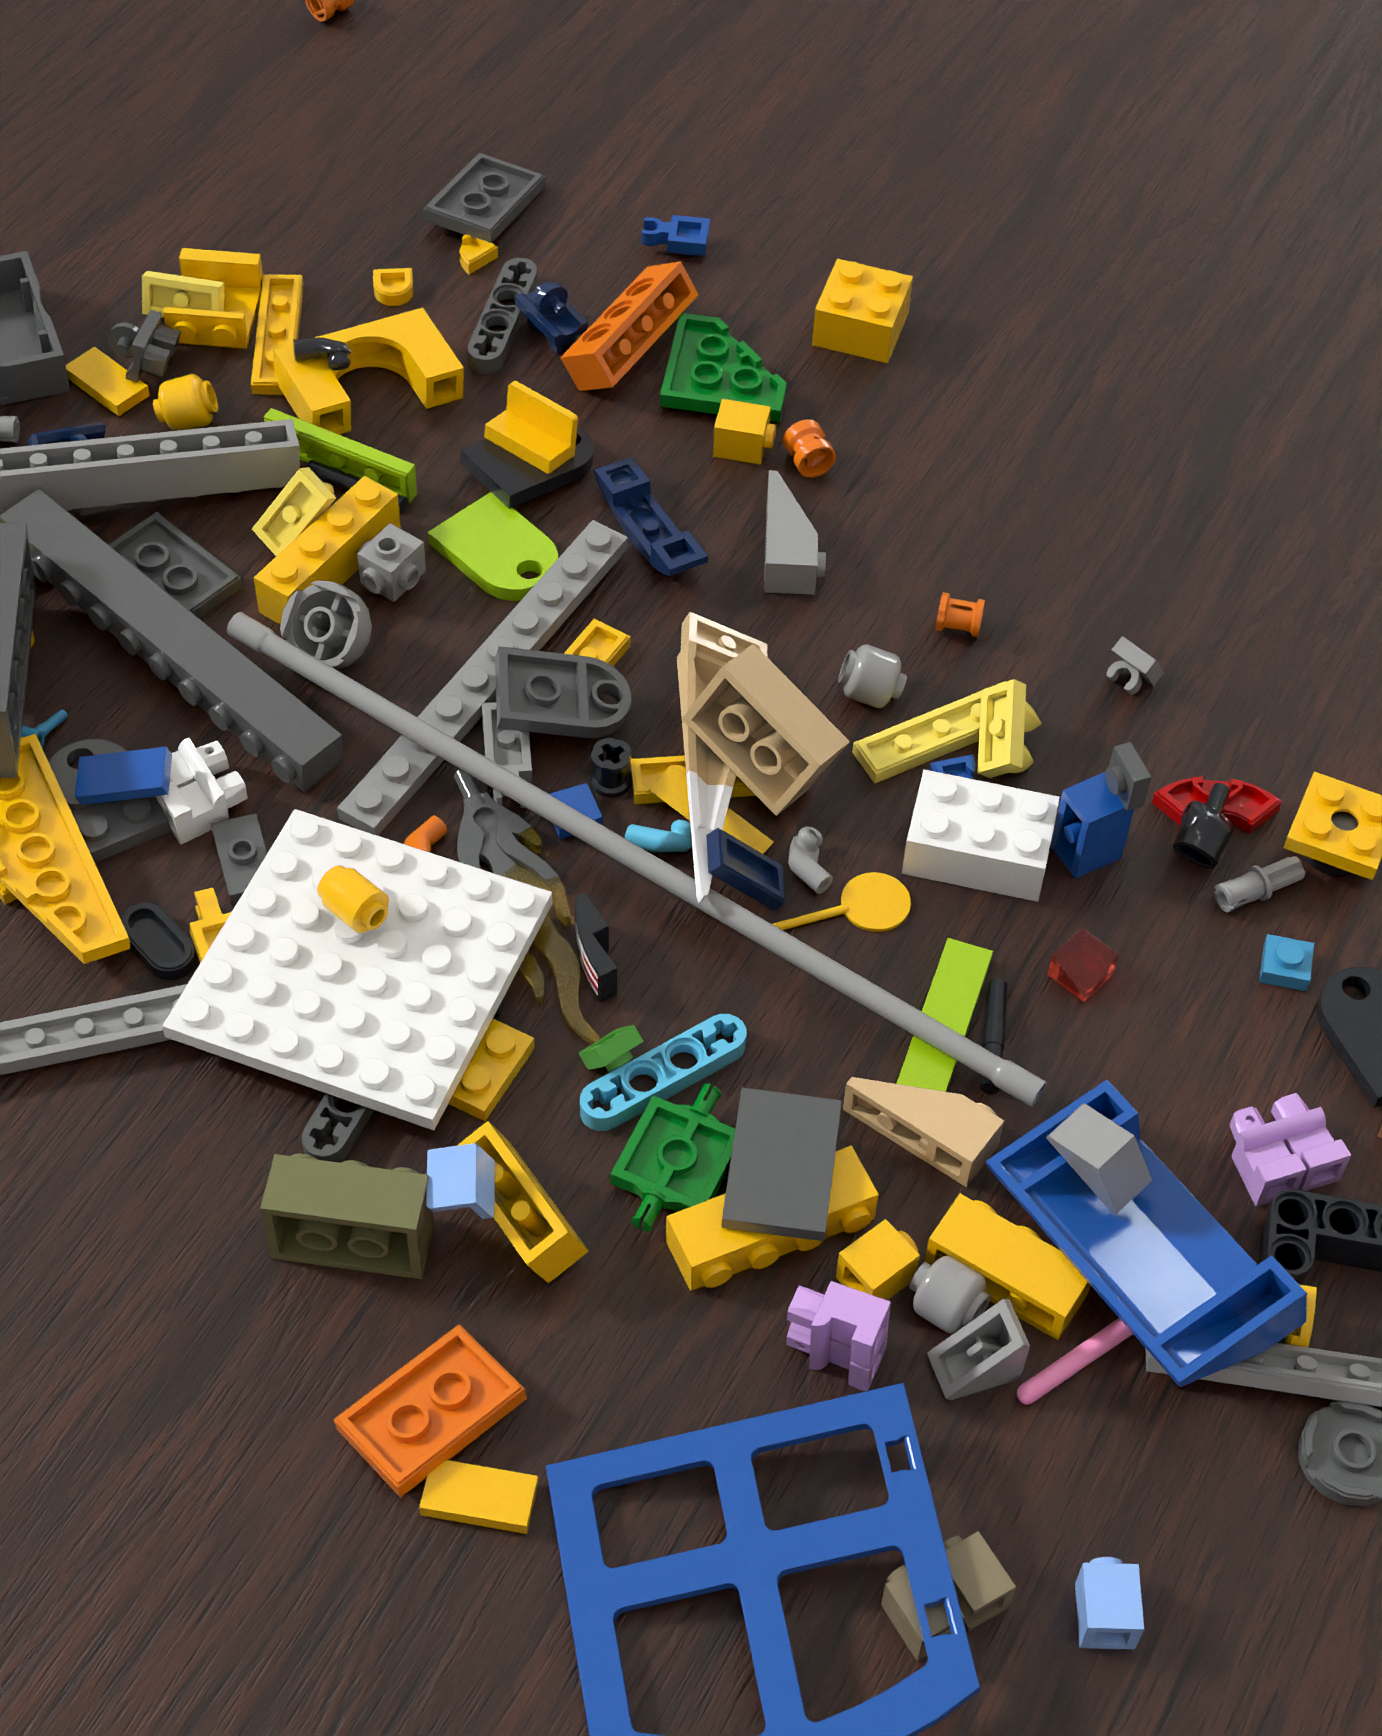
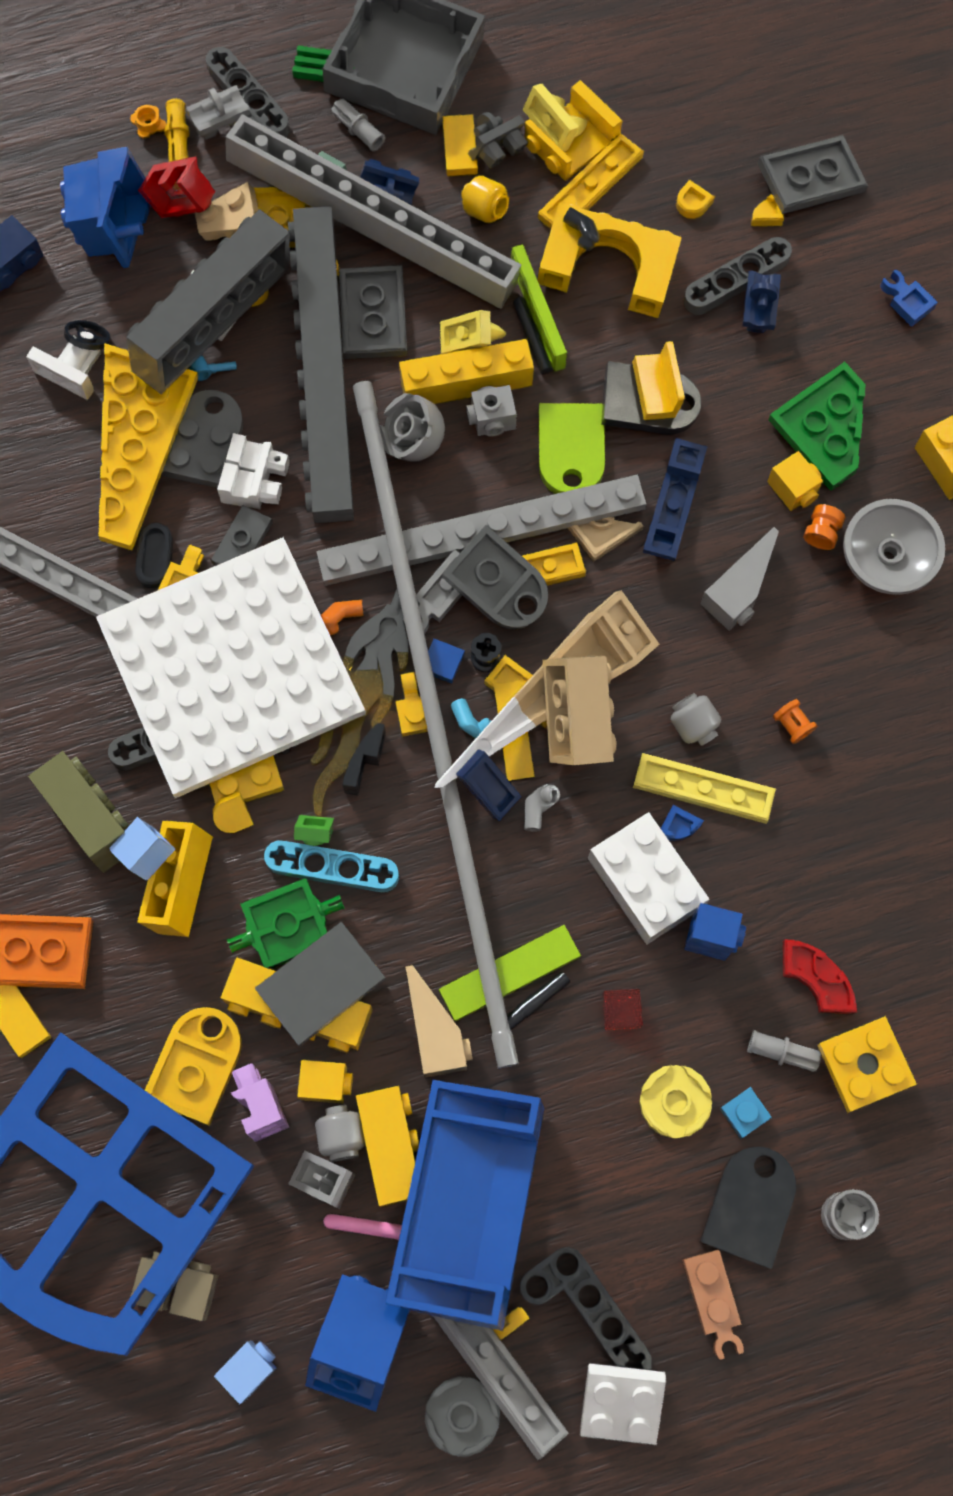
camera: 45 degrees right, 20 degrees up
(123, 775) = (213, 440): blue tile -> none
(353, 898) = (247, 627): yellow brick -> none
(507, 1102) = (231, 814): none -> yellow tile
(589, 873) = (410, 709): none -> yellow plate
(609, 599) = (603, 535): none -> tan tile
(629, 326) = (800, 348): orange brick -> none
(727, 1369) = (196, 1067): none -> yellow tile
(868, 901) = (550, 863): yellow piece -> none
(890, 415) = (898, 529): none -> light grey dish
(1002, 728) = (741, 814): light yellow tile -> none
(1102, 1156) = (485, 1138): light grey slope -> none
(1128, 776) = (737, 931): dark grey plate -> none
(1137, 663) = (867, 846): light grey tile -> none
(1189, 1471) = (356, 1343): none -> blue slope
(1205, 829) = (788, 989): black piece -> none
(1217, 1006) = (675, 1101): none -> light yellow tile
(1287, 1152) = (628, 1224): lavender hips -> none

